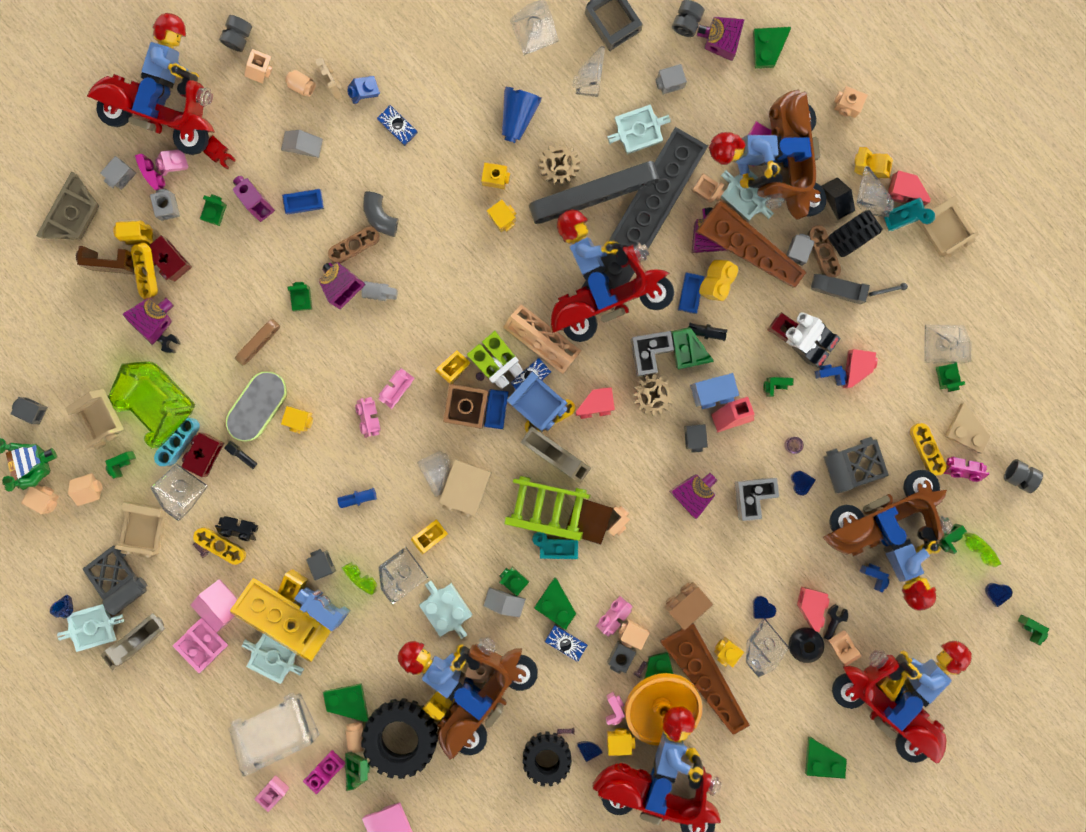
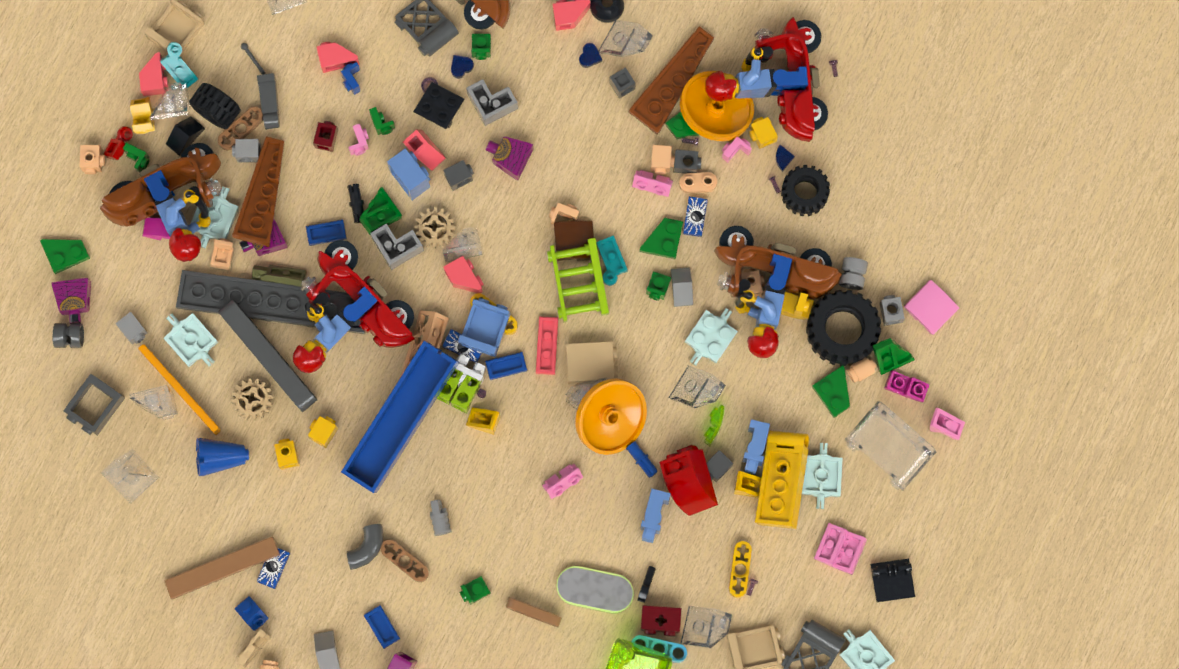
camera: 110 degrees left, 10 degrees down
(134, 641) = (859, 607): dark tan arch -> none
(152, 681) = (892, 580): none -> black hinge
(214, 605) = (797, 548): bright pink slope -> none
(229, 528) = (720, 568): black hinge -> none
(297, 419) = (591, 544): yellow brick -> none
(298, 486) = (653, 514): none -> medium blue hips
(318, 534) = (689, 480): none -> red piece
(339, 284) = (446, 555): magenta torso -> none
(392, 794) = (891, 318): none -> light grey brick
(401, 382) = (526, 463): bright pink hinge -> none
(403, 485) = (611, 416): none -> light orange dish
(414, 78) = (222, 568): none -> medium nougat tile
(429, 536) = (650, 378): yellow slope -> none
(449, 770) = (853, 273): none -> light grey wheel
(466, 406) = (515, 391): medium nougat brick -> none
(483, 290) = (400, 417): none -> blue piece
(500, 454) = (547, 345): none -> coral tile
(555, 455) = (526, 291): dark tan arch -> none
(595, 101) = (179, 389): none -> light orange tile
(597, 659) = (698, 184): none -> light nougat plate
(625, 415) = (463, 244): none -> clear slope
(667, 234) = (279, 274): none -> olive hinge
(688, 605) = (613, 120): medium nougat brick -> none
(718, 280) = (305, 210): yellow brick -> none
(722, 628) = (622, 83): none -> dark grey brick
(728, 652) = (642, 70): yellow brick -> none
(769, 361) = (362, 136): none -> bright pink bracket
(771, 445) = (439, 105): none -> black hinge
(812, 339) = (327, 109): hips -> none
(814, 509) = (481, 46): none -> green bracket
(831, 149) = (135, 153): none -> green bracket
(853, 130) = (115, 147): none -> red plate

